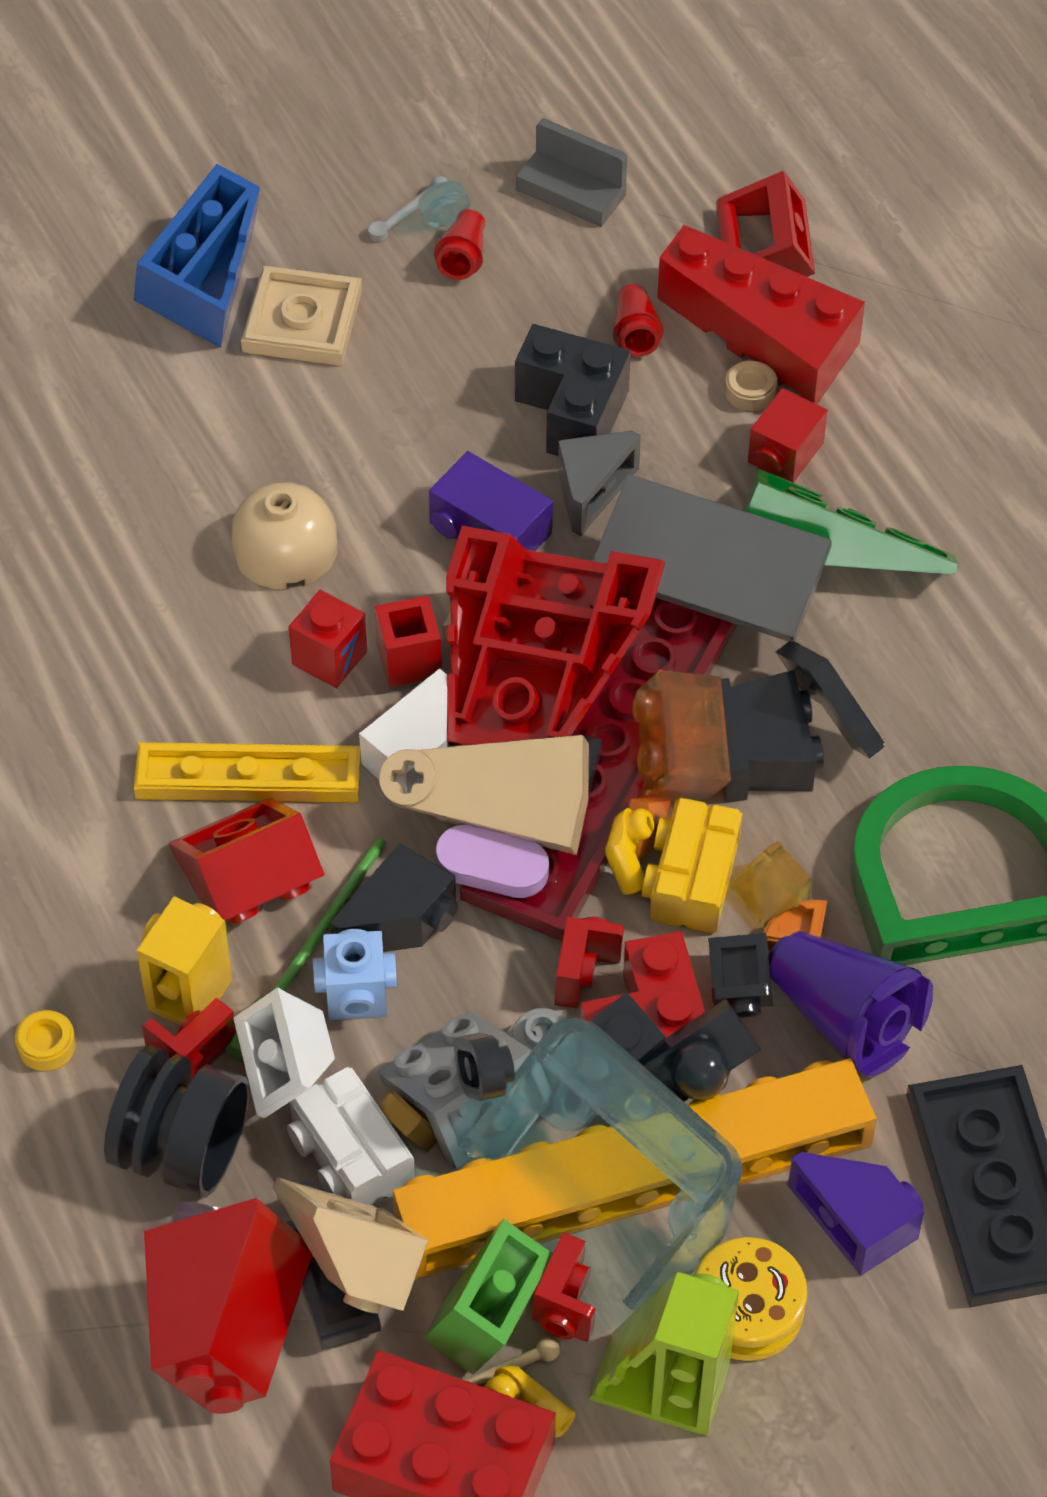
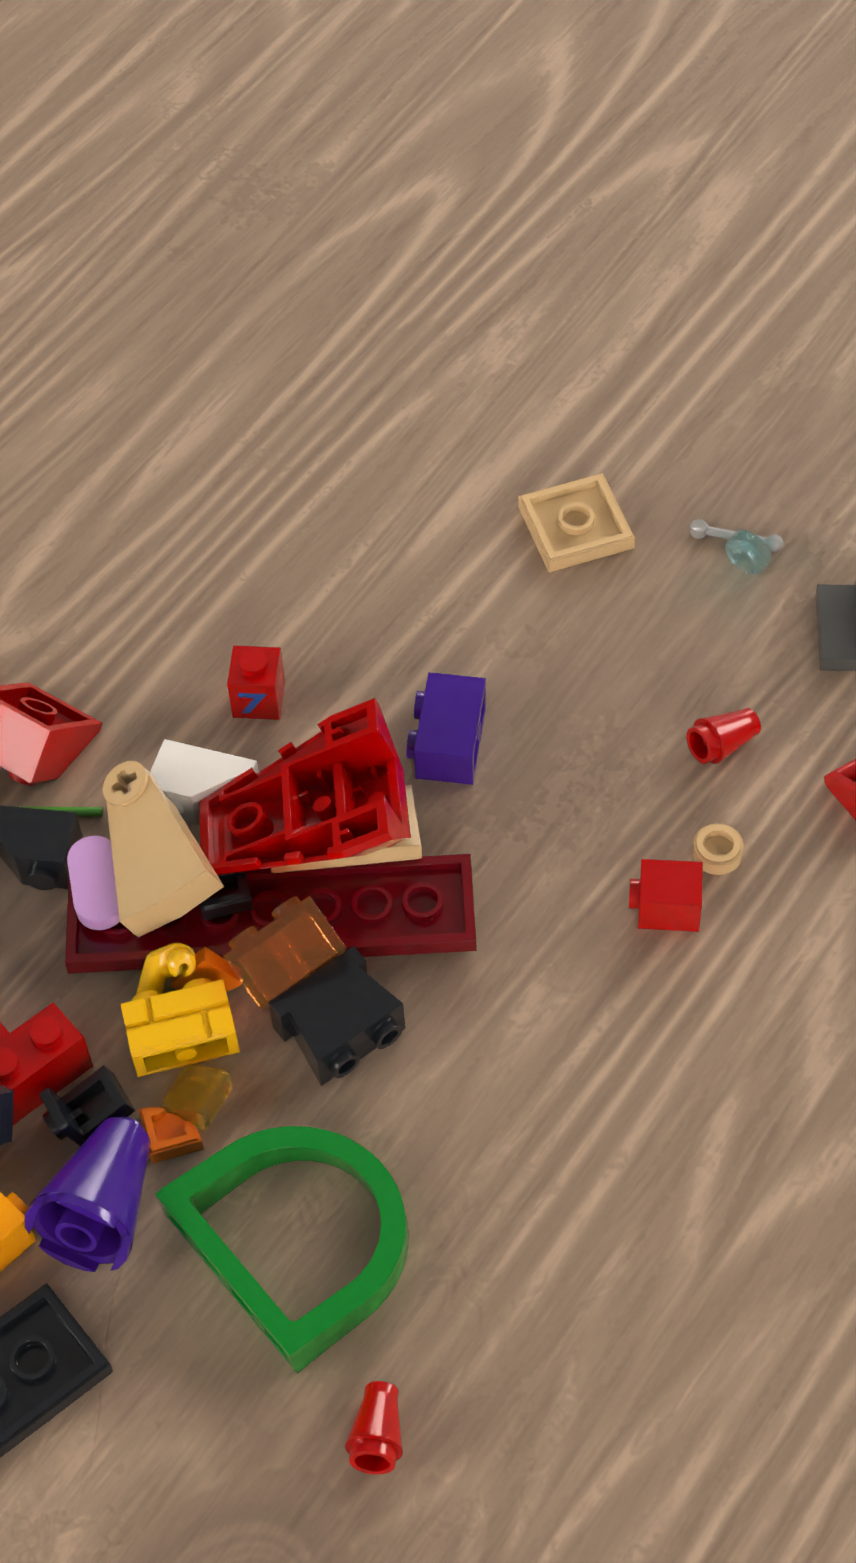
camera: 65 degrees right, 0 degrees up
(200, 256) = (575, 428): blue wedge -> none
(247, 772) = (114, 693): yellow tile -> none
(284, 536) = (345, 612): tan cylinder -> none
(408, 640) = (273, 724): red brick -> none
(461, 247) = (714, 583): red cone -> none
(574, 380) = (615, 731): black brick -> none
(583, 945) = (46, 982): red bracket -> none
(594, 473) = (532, 779): dark grey slope -> none
(719, 556) = (479, 892): dark grey tile -> none
(762, 310) = (790, 829): red wedge -> none
(827, 688) = (390, 1029): black tile -> none
(852, 533) = (580, 953): wedge -> none

